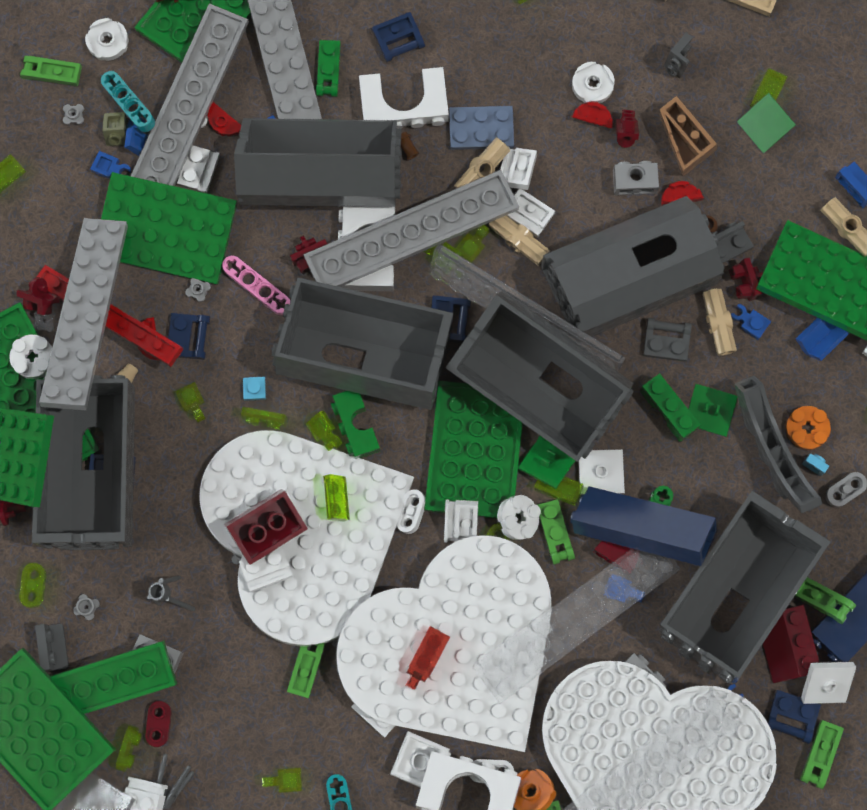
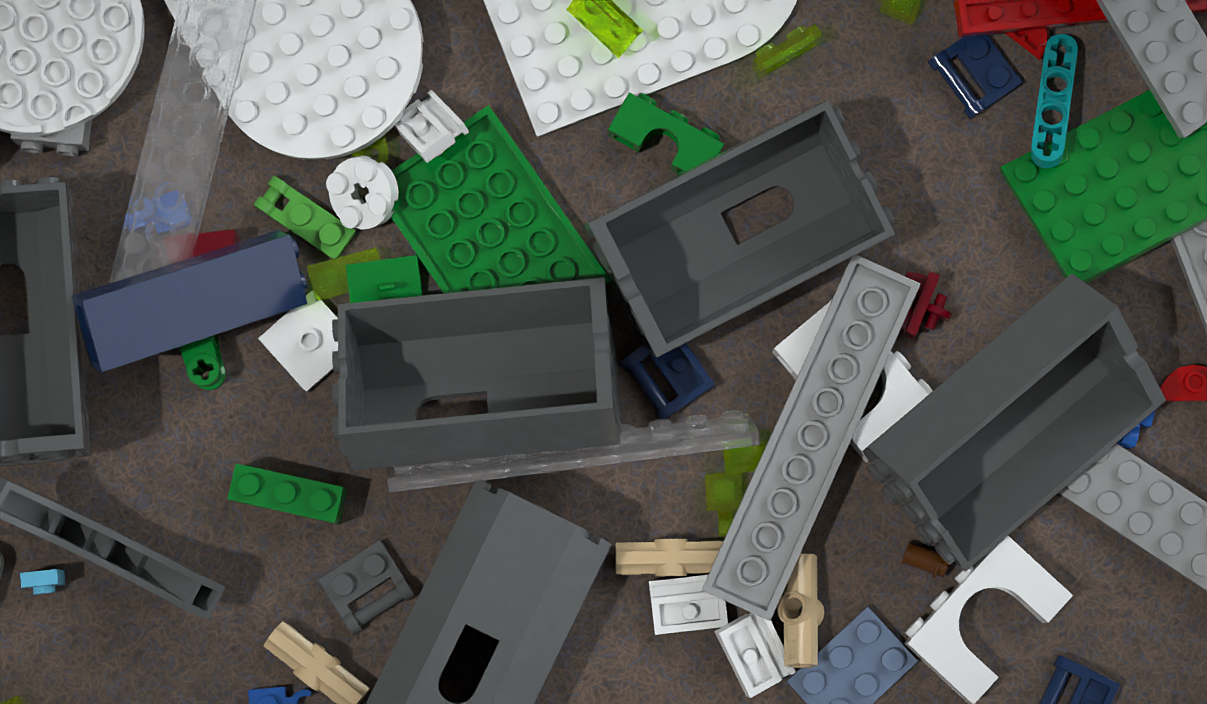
camera: 140 degrees right, 5 degrees up
(163, 287) = (1053, 100): none -> teal beam
(198, 169) = (1163, 296): white plate -> none
(199, 295) = (1008, 134): light grey plate -> none
(254, 388) = (832, 78): medium azure plate -> none
(255, 287) = (949, 214): bright pink beam -> none
(322, 429) = (701, 98): clear neon green plate -> none
(328, 67) = (1125, 579): green plate -> none
(411, 512) = (502, 91): white plate -> none
(712, 409) = (236, 543): green piece -> none
(799, 436) = (70, 622): orange plate -> none

